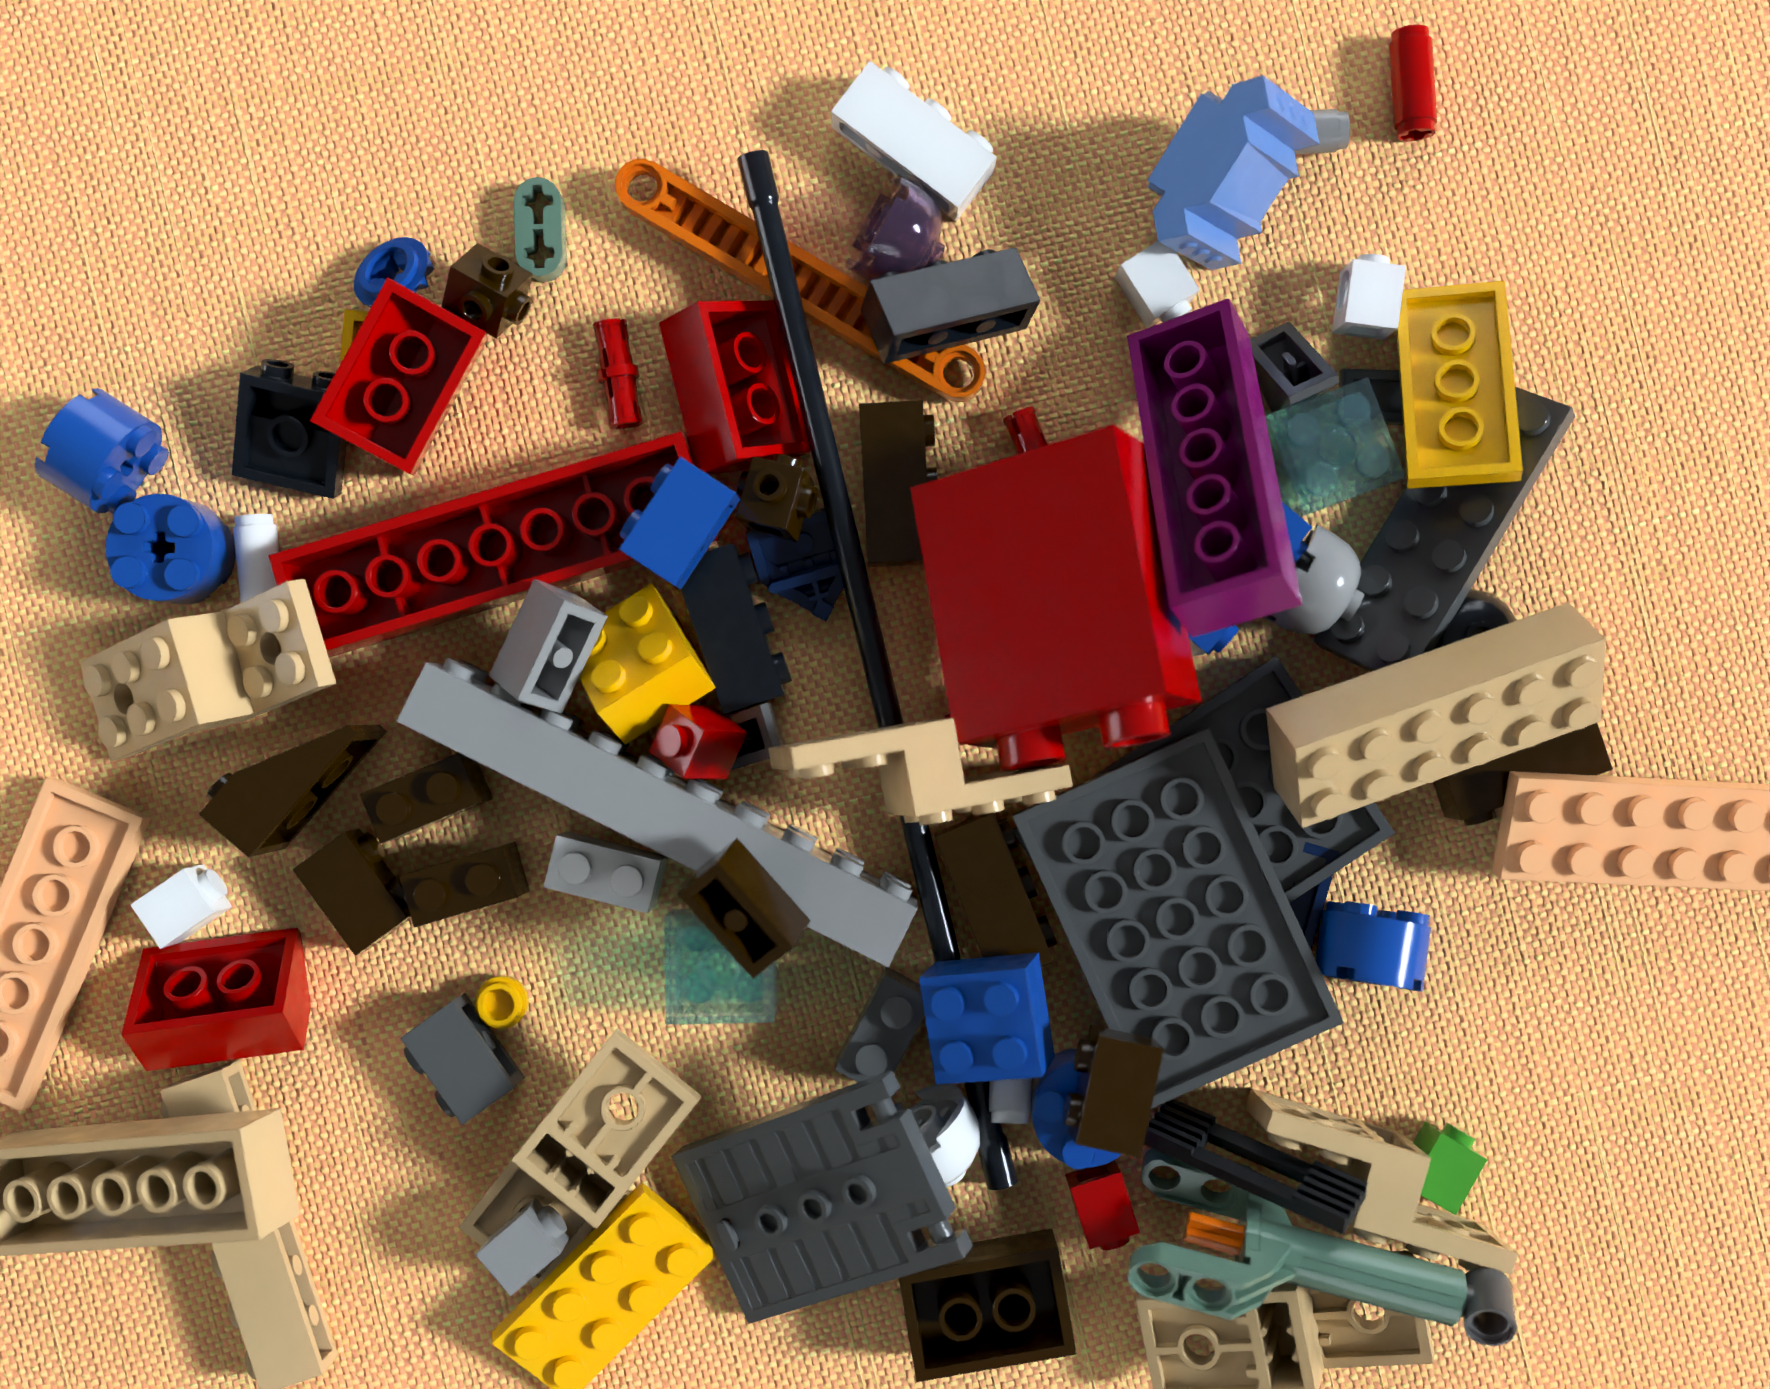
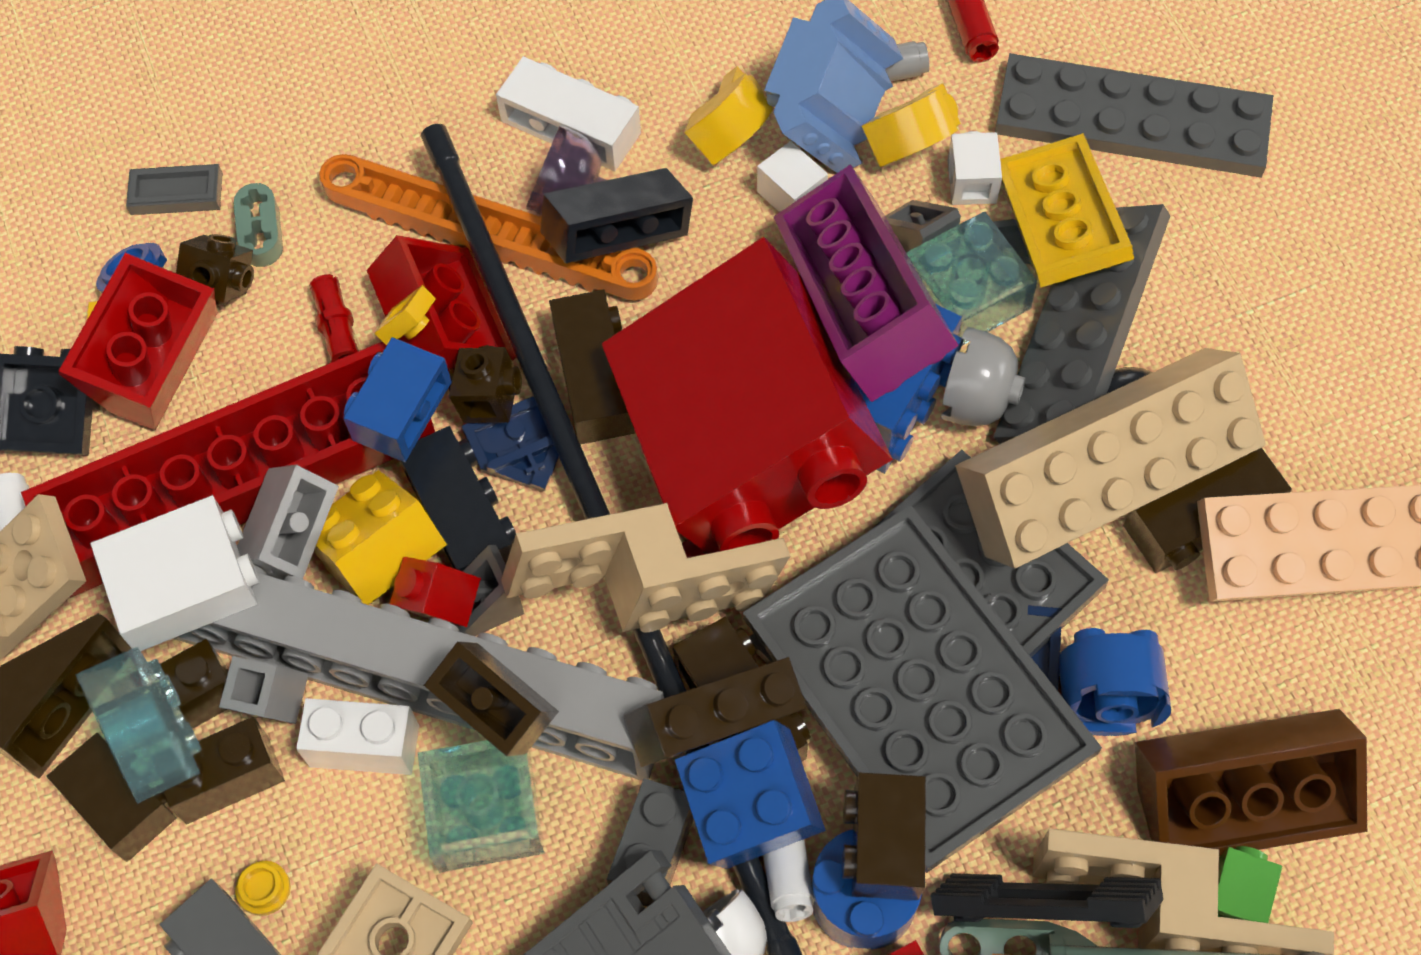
camera: 10 degrees left, 25 degrees down
(386, 861) = (141, 722): none -> clear light blue brick
(429, 705) = (175, 573): none -> white brick
(446, 163) = (174, 189): none -> dark grey tile
(511, 814) = (263, 690): none -> light grey brick
(698, 416) = (406, 317): none -> yellow plate
(967, 943) = (714, 711): none -> dark brown brick
(1101, 190) = (729, 116): none -> yellow brick
(1312, 239) = (912, 125): none -> yellow brick
(1482, 1063) = (1256, 783): none -> reddish brown slope
(1570, 250) = (1136, 114): none -> dark grey plate

